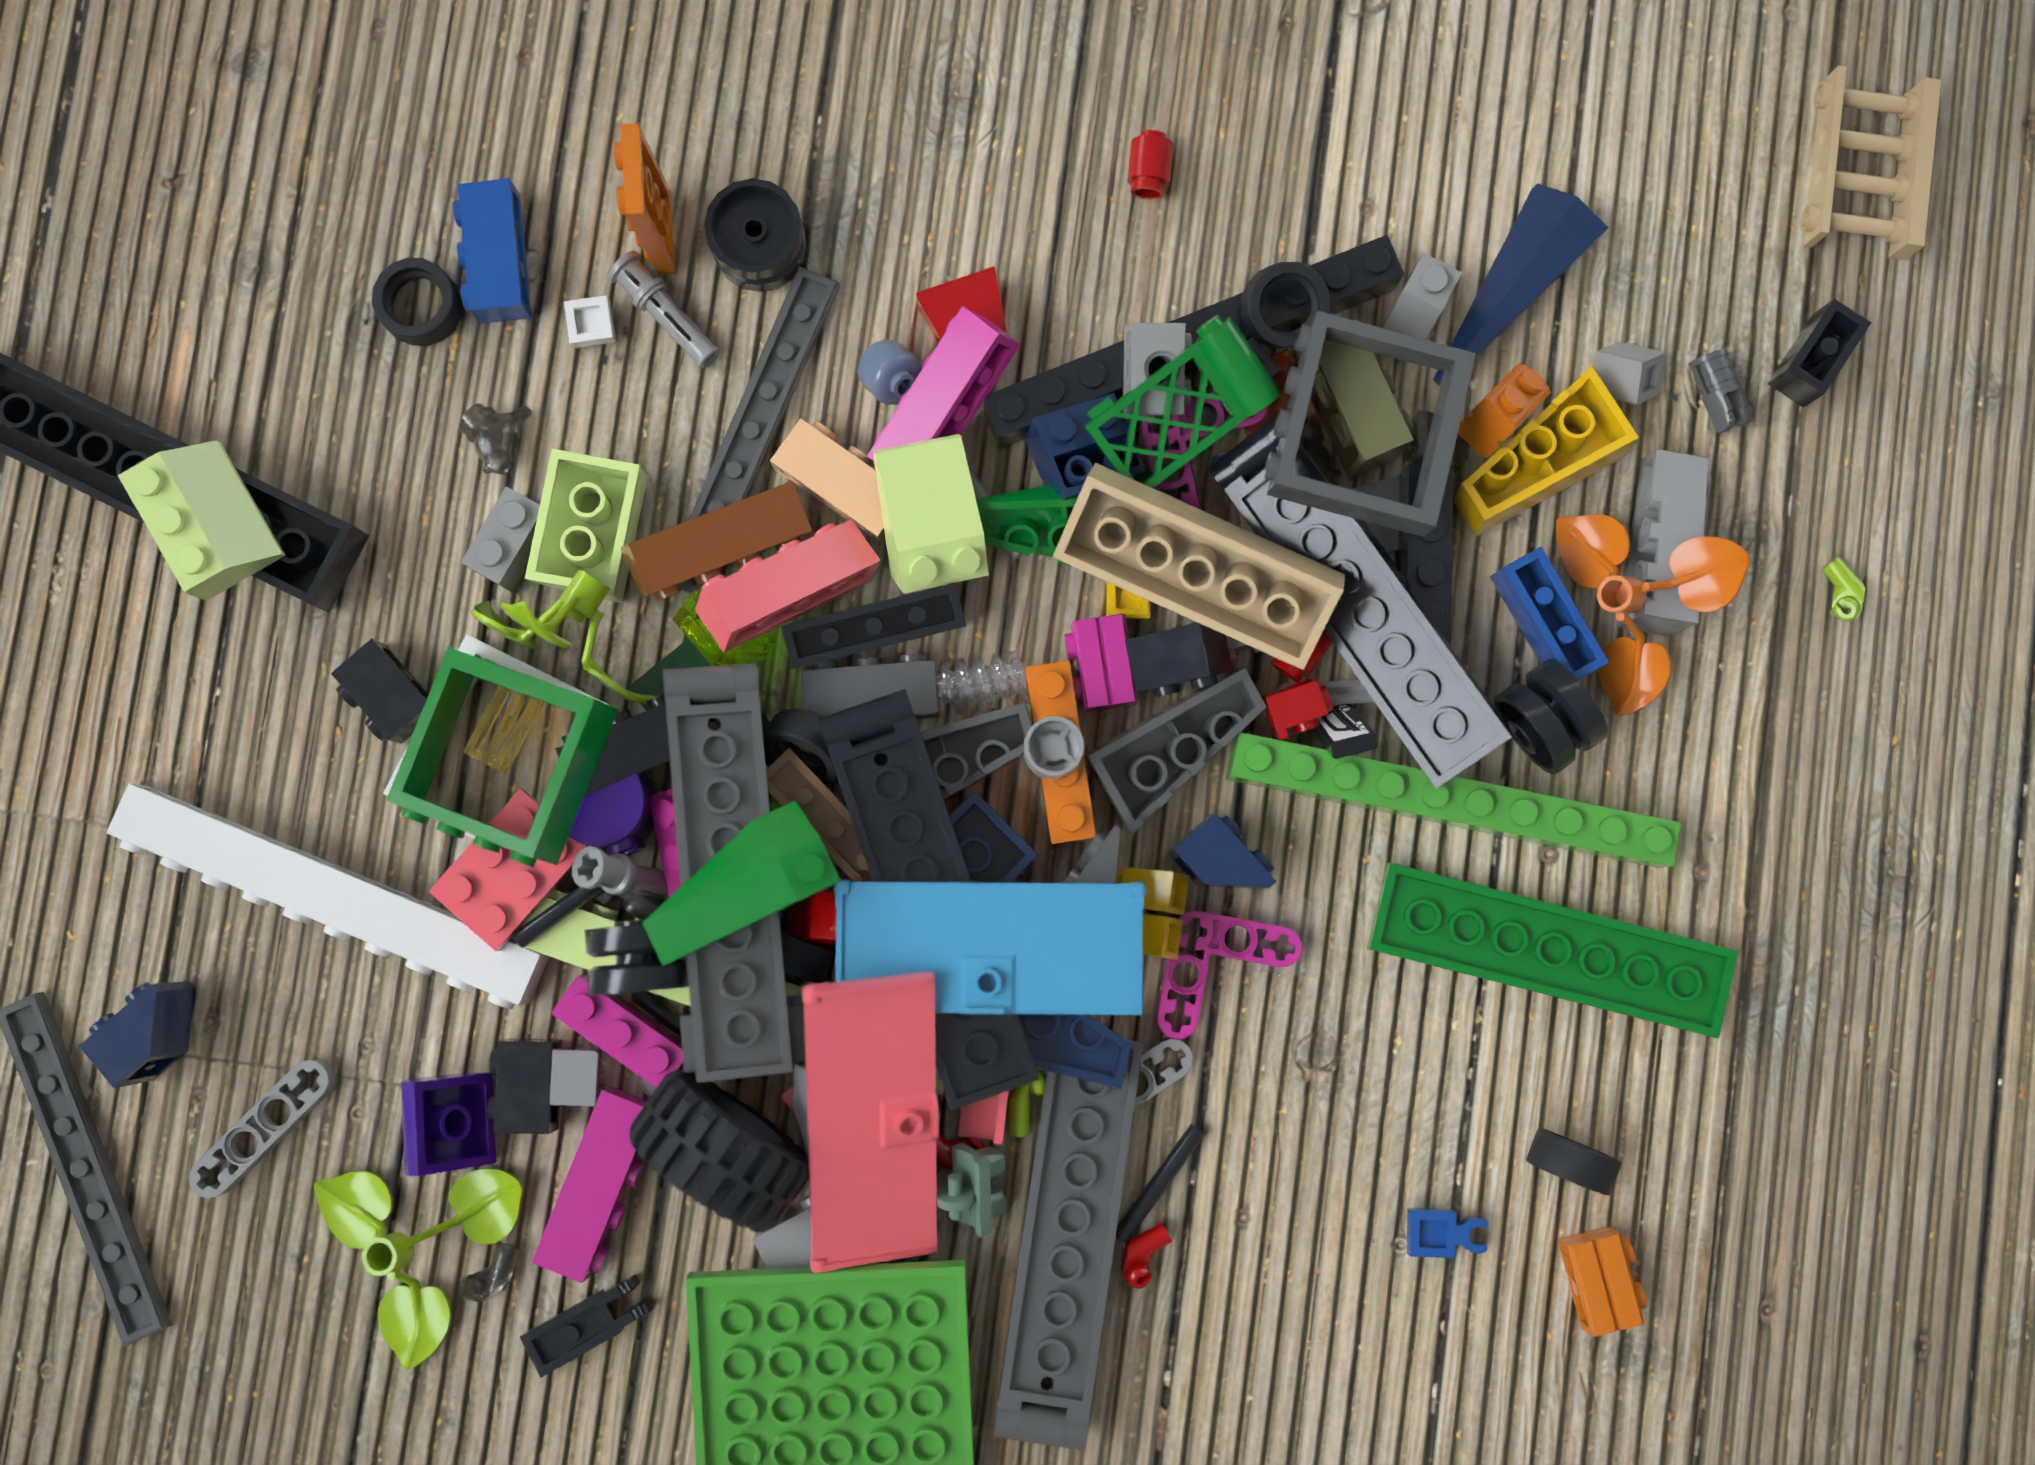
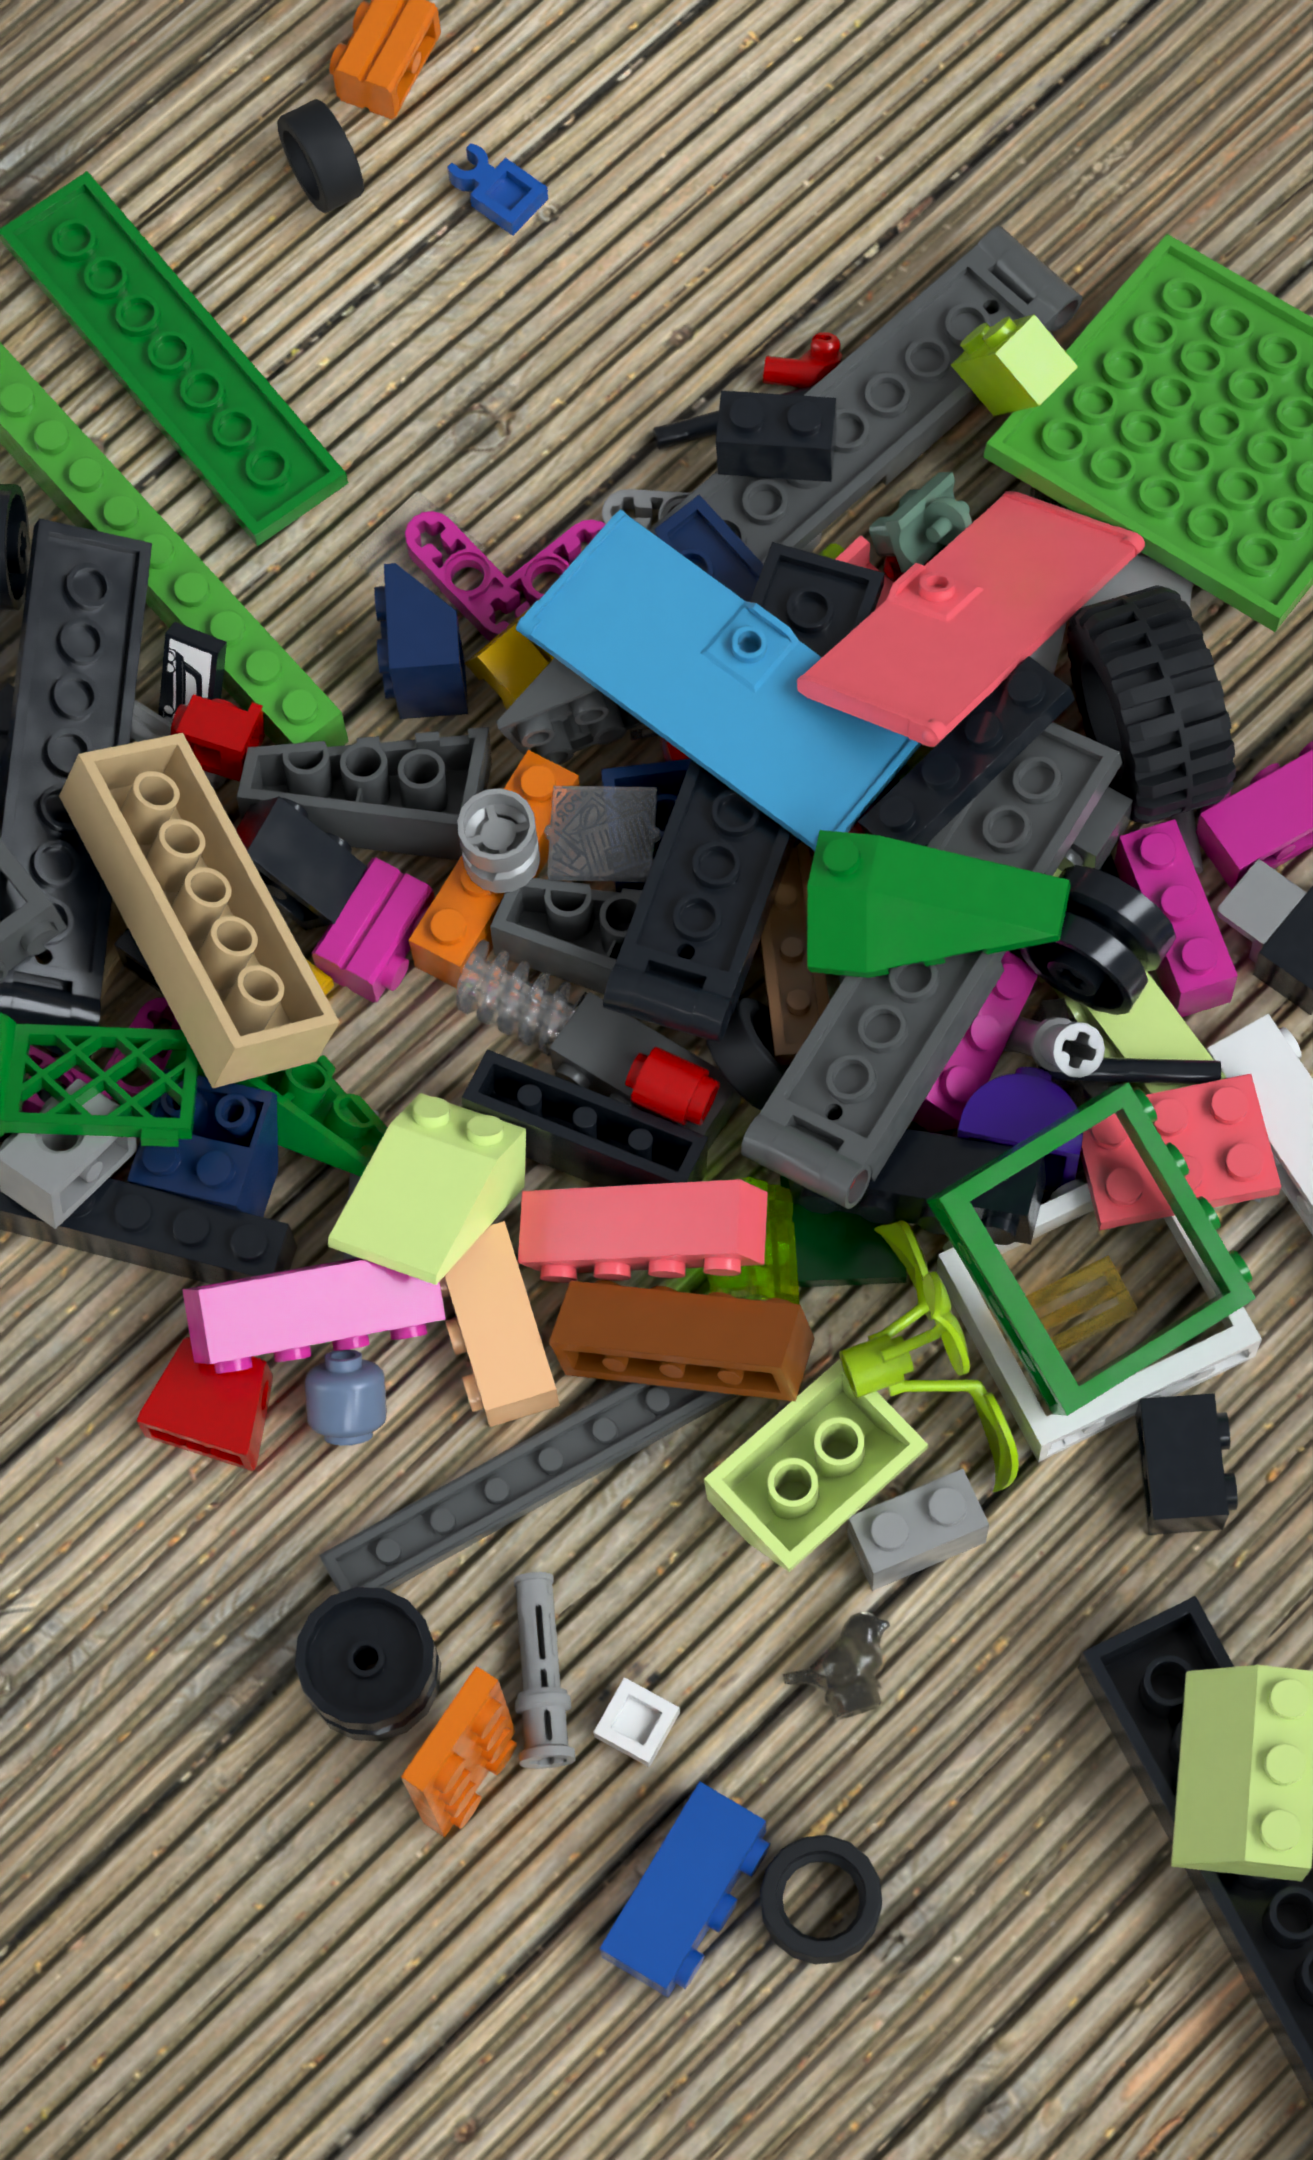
camera: 135 degrees left, 15 degrees down
(799, 963) = (970, 756): none -> black plate
(835, 682) = (672, 1086): none -> red brick
(983, 1334) = (1013, 364): none -> lime brick
(1002, 811) = (602, 833): none -> clear piece
(1103, 1169) = (776, 436): none -> black brick

